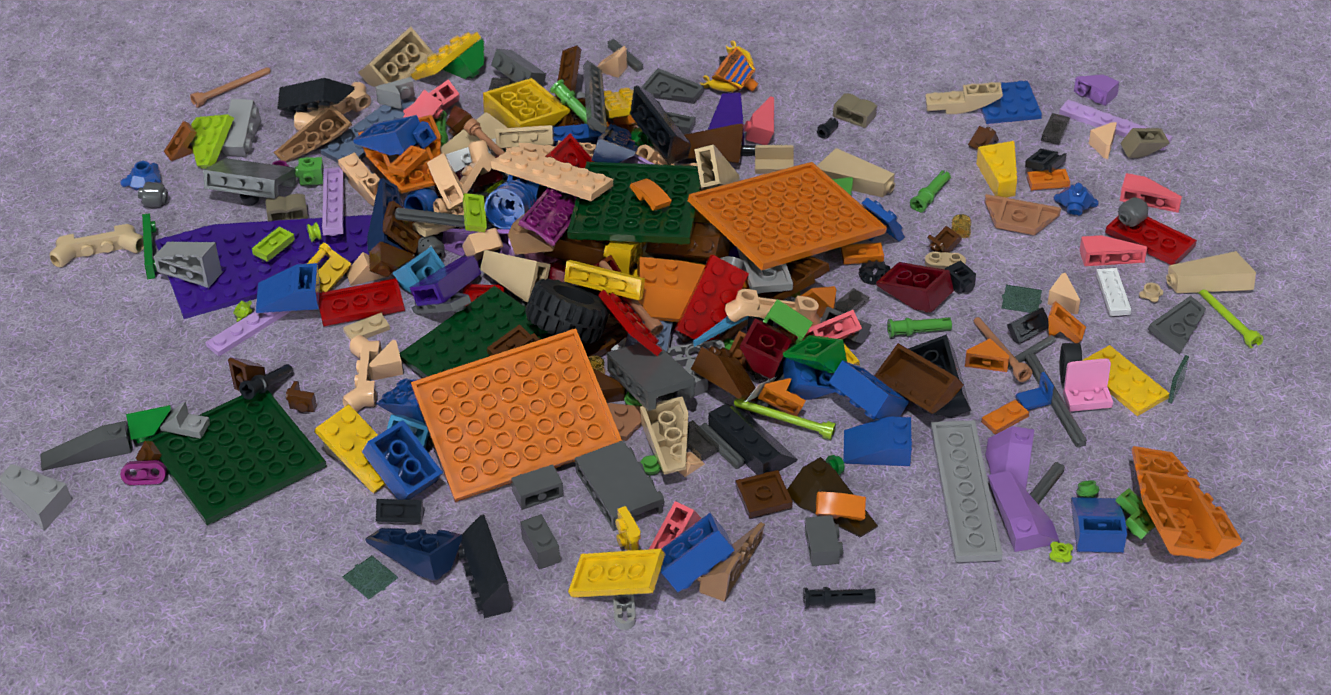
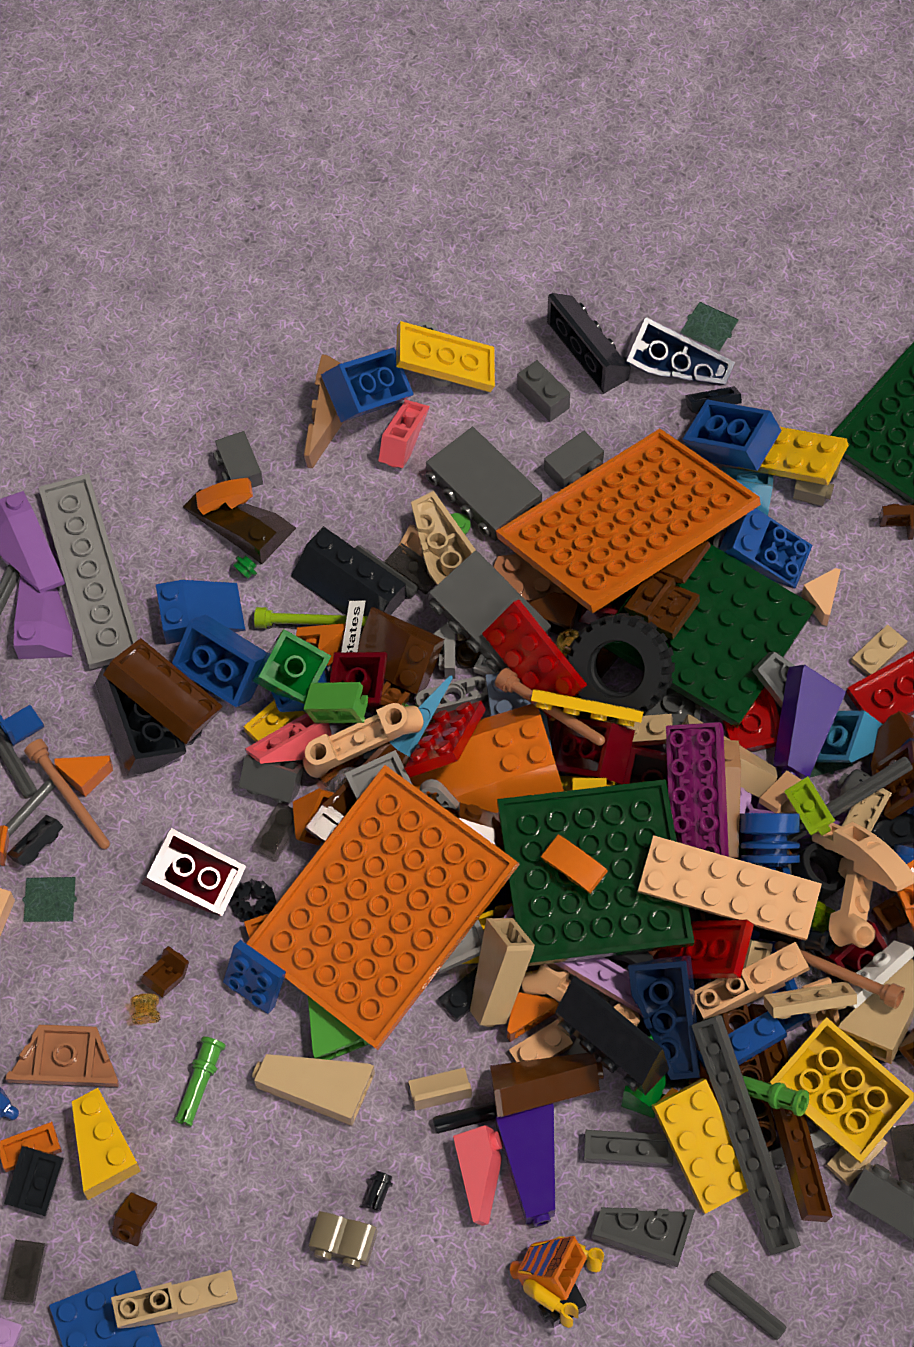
camera: 165 degrees right, 20 degrees up
(365, 390) = (850, 603): light nougat plate -> none
(615, 63) = (759, 1266): light nougat slope -> none
(628, 530) = (447, 407): yellow plate -> none
(763, 494) = (317, 508): reddish brown plate -> none
(826, 597) = (220, 400): black pin -> none
(909, 326) = (191, 805): bright green pin -> none
(942, 259) = (159, 941): tan plate -> none
(962, 277) = (142, 911): black brick -> none
(1005, 417) = (53, 691): orange plate -> none

